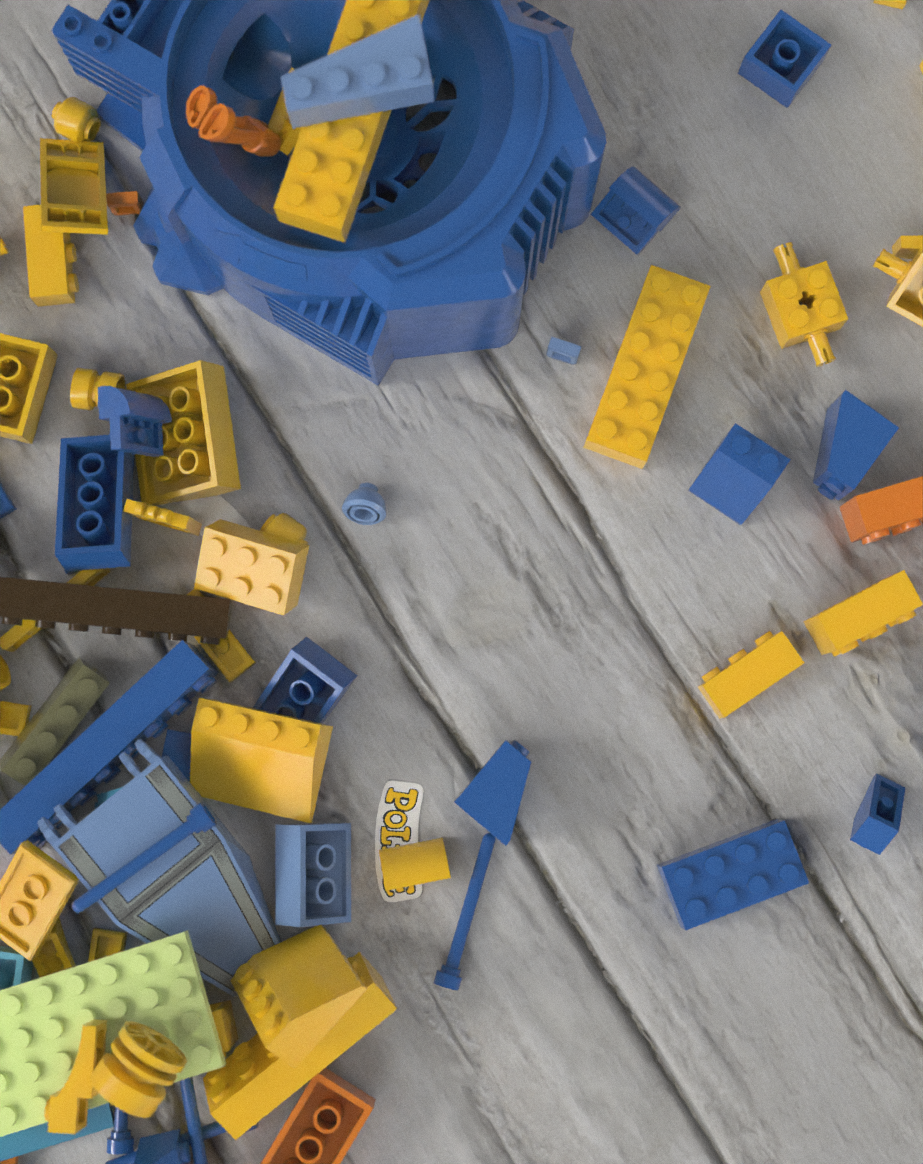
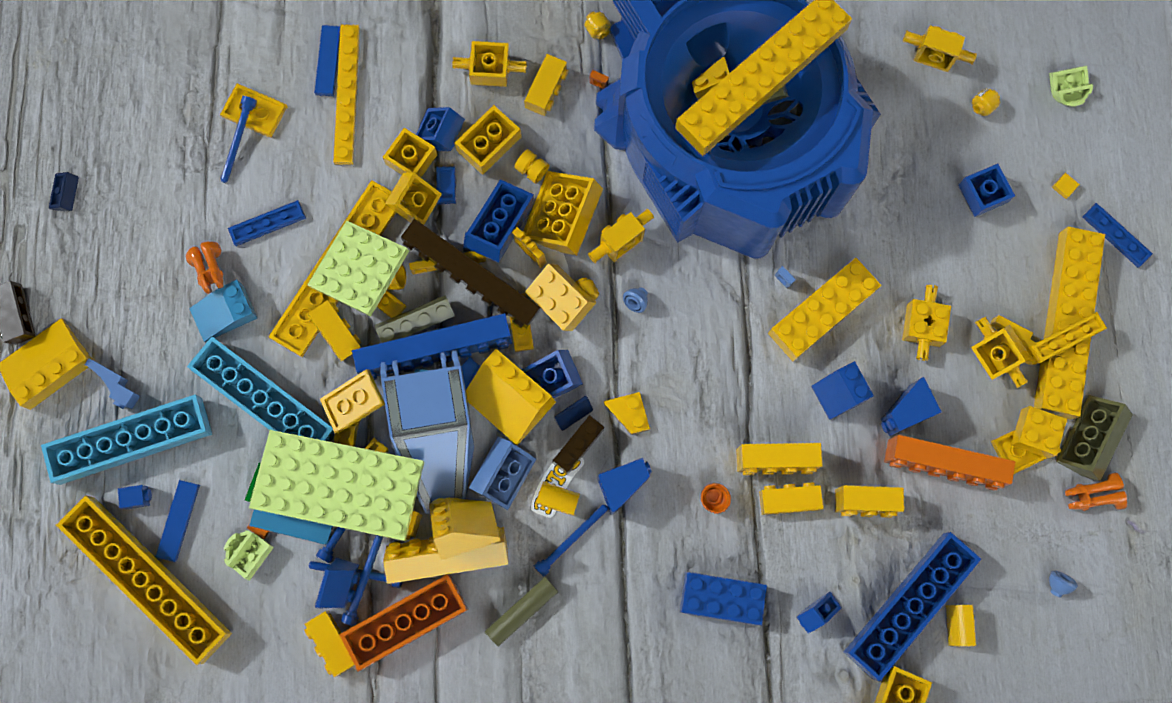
camera: 25 degrees right, 5 degrees down
(68, 1107) = (315, 514): yellow slope -> none
(73, 187) = (577, 57): yellow slope -> none
(134, 420) = (542, 190): blue brick -> none
(138, 1069) = (359, 515): yellow wheel -> none
(198, 820) = (461, 408): blue piece -> none
(221, 124) = (673, 65): orange piece -> none
(290, 424) = (622, 236): none -> yellow brick
(363, 78) = (757, 79): medium blue wedge -> none
(367, 726) = (573, 413): none -> dark blue slope
(400, 769) = (578, 445): none -> dark brown brick
(447, 677) = (630, 412): none -> yellow wing
(453, 1059) = (521, 611): none -> olive brick
(635, 209) = (863, 225): blue brick -> none
(642, 734) = (715, 498): none -> orange hair
(706, 621) = (779, 457): none -> yellow brick

